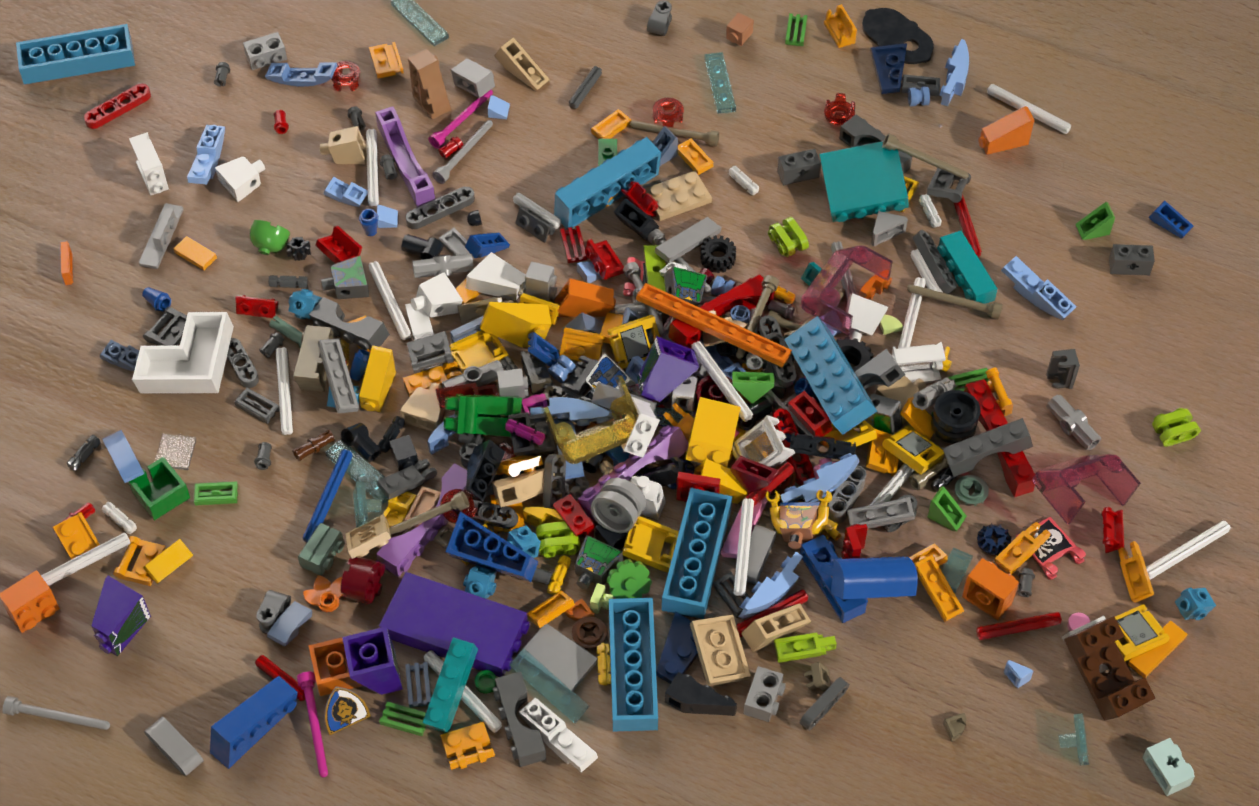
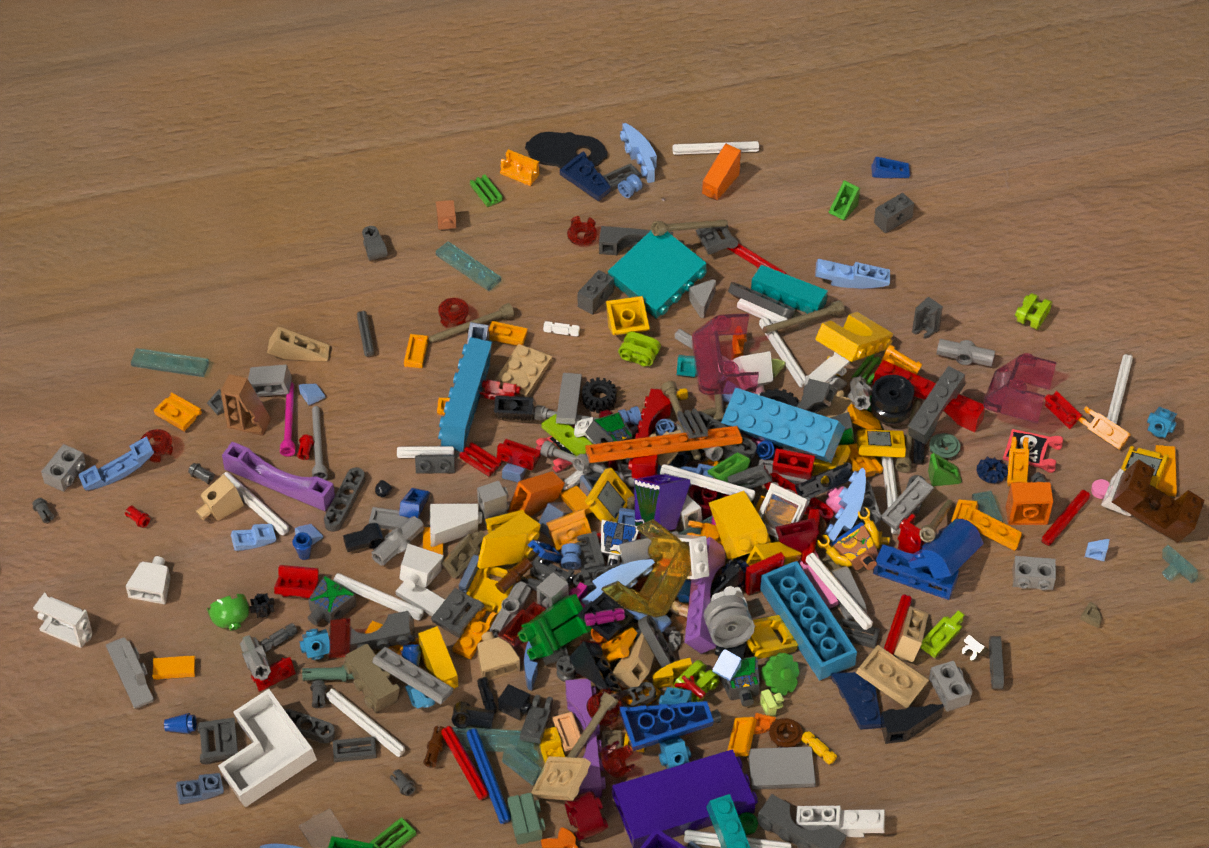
camera: 40 degrees left, 5 degrees down
(66, 263) = (70, 748): orange tile -> none
(207, 155) = (102, 582): light blue slope -> none
(248, 283) = (255, 657): none -> light grey piece
(320, 309) = (339, 637): none -> clear red tile
(321, 472) = (465, 763): none -> red axle
(387, 163) = (265, 492): dark grey pin -> none
(438, 558) = (616, 765): none -> clear red piece
(499, 352) = (513, 575): none -> reddish brown pin
(544, 538) = (690, 685): none -> red bar
(549, 686) = (798, 790): clear light blue tile -> none
(559, 575) = (719, 703): yellow axle -> none
(574, 516) = (695, 655): red bracket -> none
(588, 541) = (727, 665): none -> slope
(606, 149) = (436, 374): green plate -> none
(633, 665) = (843, 730): dark azure brick -> none
(757, 314) = (698, 421): none -> dark grey tile
(761, 401) = (749, 477): none -> dark grey tile
(771, 589) = (885, 606): light blue slope -> none
(781, 308) = (689, 404): dark grey pin -> none
(802, 202) = (627, 315): none -> yellow slope
(861, 549) = (929, 531): none -> dark tan piece
(930, 210) = (720, 265): white axle -> none
(941, 649) = (1030, 572): none -> light grey brick
(961, 349) = (856, 339): none -> yellow arch

